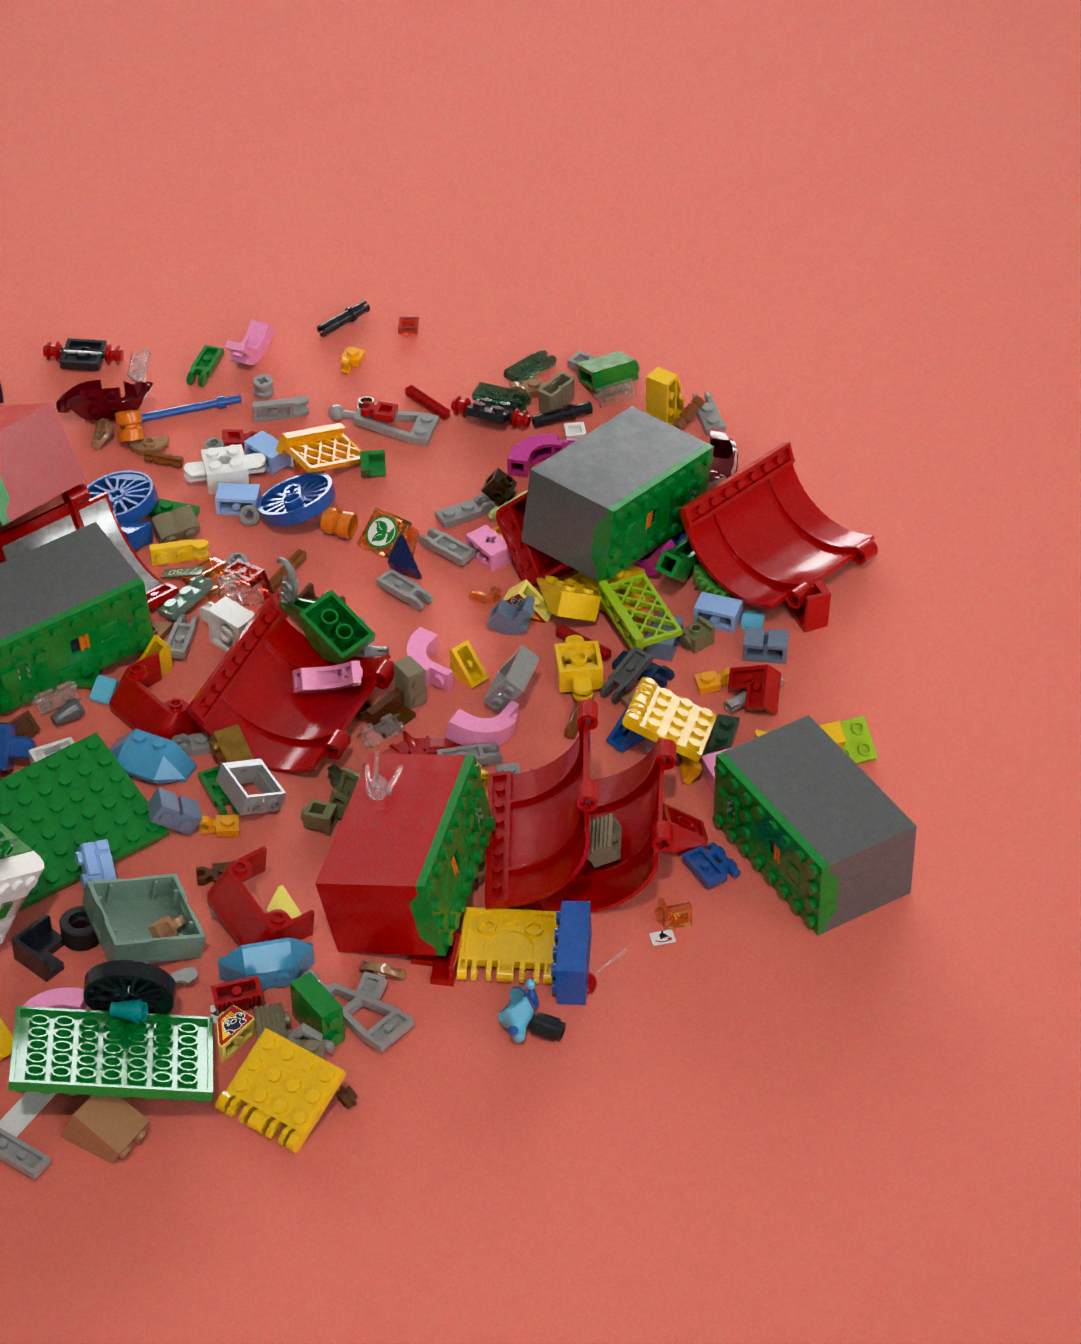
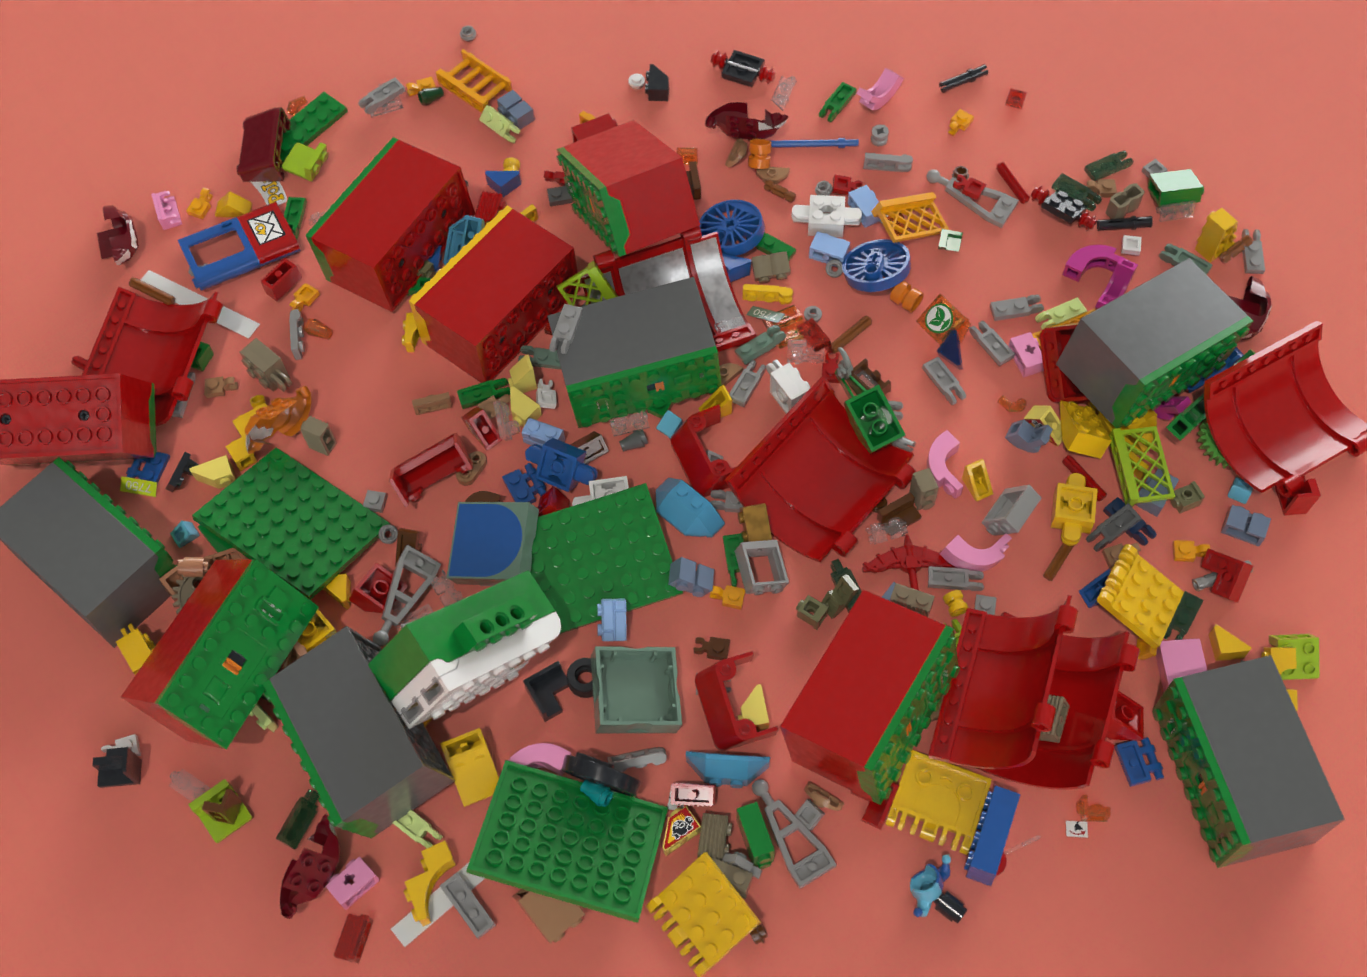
camera: 20 degrees right, 20 degrees up
(166, 926) = (651, 704): medium nougat plate -> none
(328, 677) = (855, 466): bright pink arch -> none
(377, 785) = (859, 636): clear plant -> none
(499, 487) = (1051, 292): dark brown brick -> none
(719, 610) = (1211, 476): light blue brick -> none

